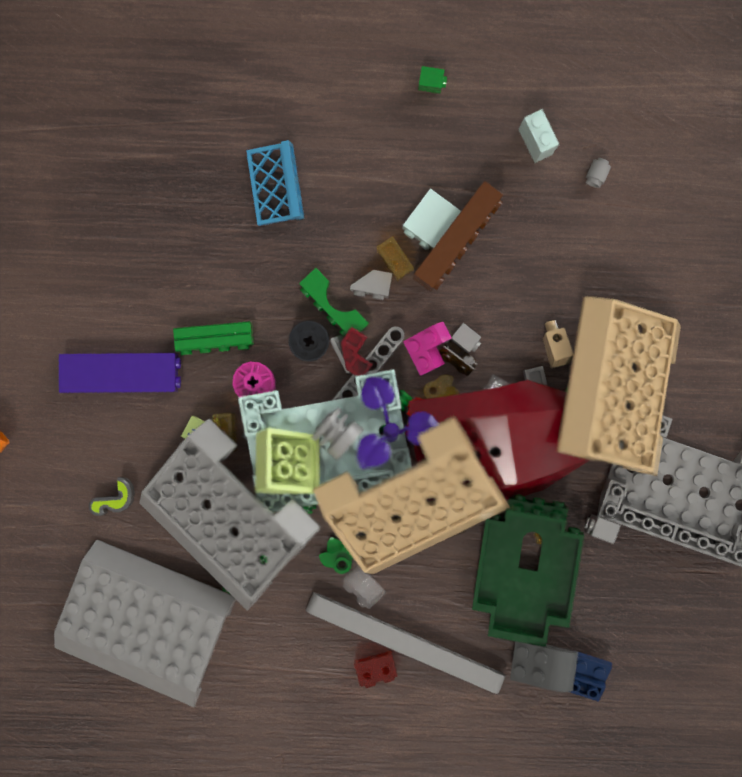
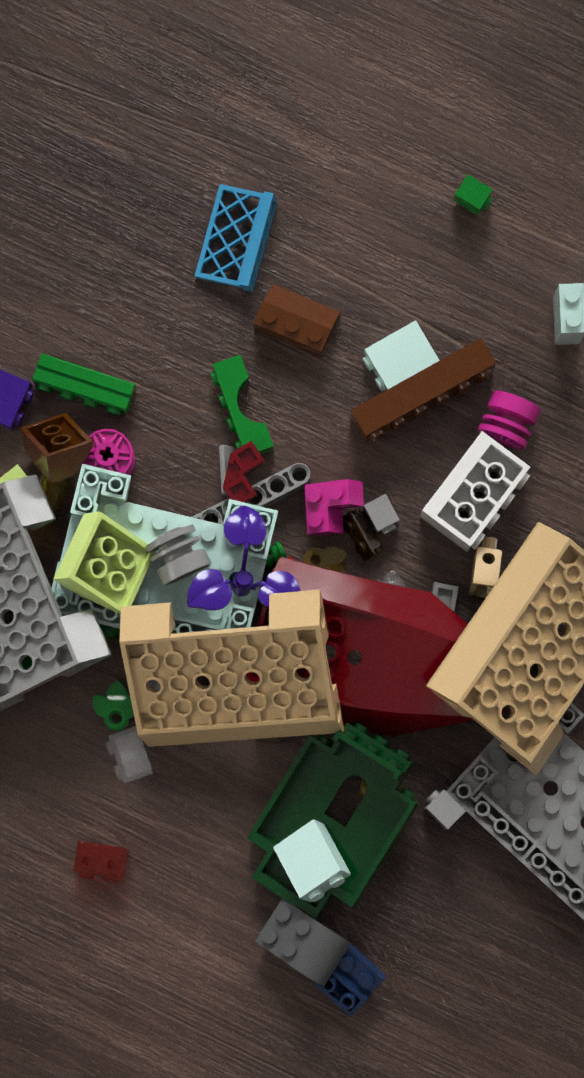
camera: 25 degrees right, 5 degrees down
(214, 391) = (56, 446): none -> reddish brown slope
(304, 330) = (194, 422): black wheel -> none
(344, 225) = (296, 320): none -> reddish brown slope
(374, 283) = (299, 402): light grey slope -> none
(394, 258) = (338, 384): clear yellow brick -> none
(405, 643) = (150, 845): light grey beam -> none
(514, 297) = (473, 475): none -> white brick
(527, 608) = (312, 861): none -> light aqua brick
(528, 231) = (510, 416): none -> dark pink wheel

